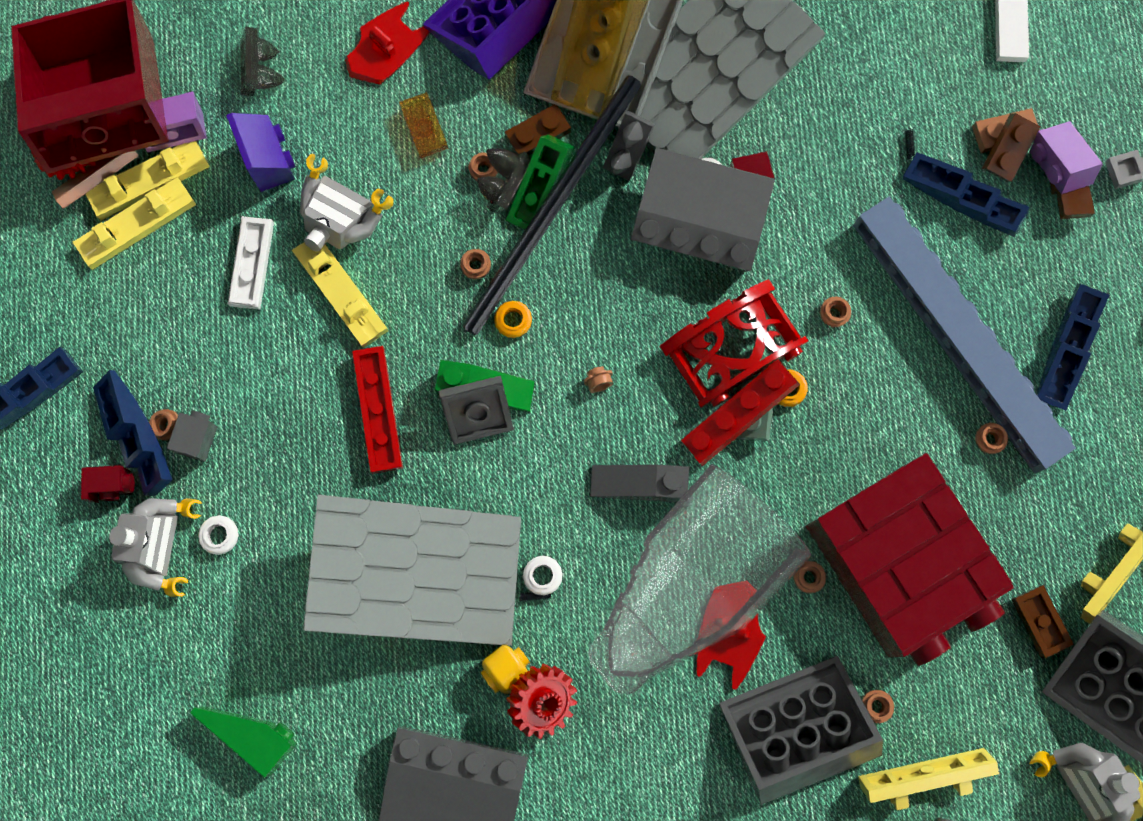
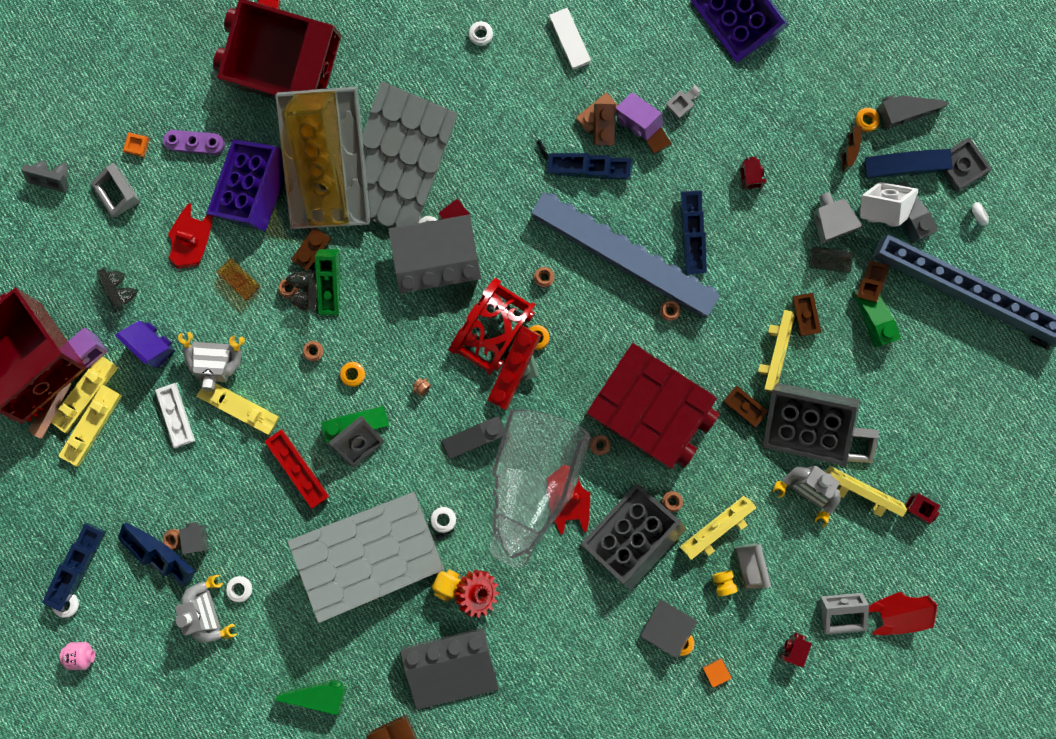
camera: 25 degrees left, 5 degrees up
(106, 483) = (156, 591): dark red brick -> none
(551, 205) = (342, 293): black axle -> none
(628, 145) = (371, 234): dark grey tile -> none

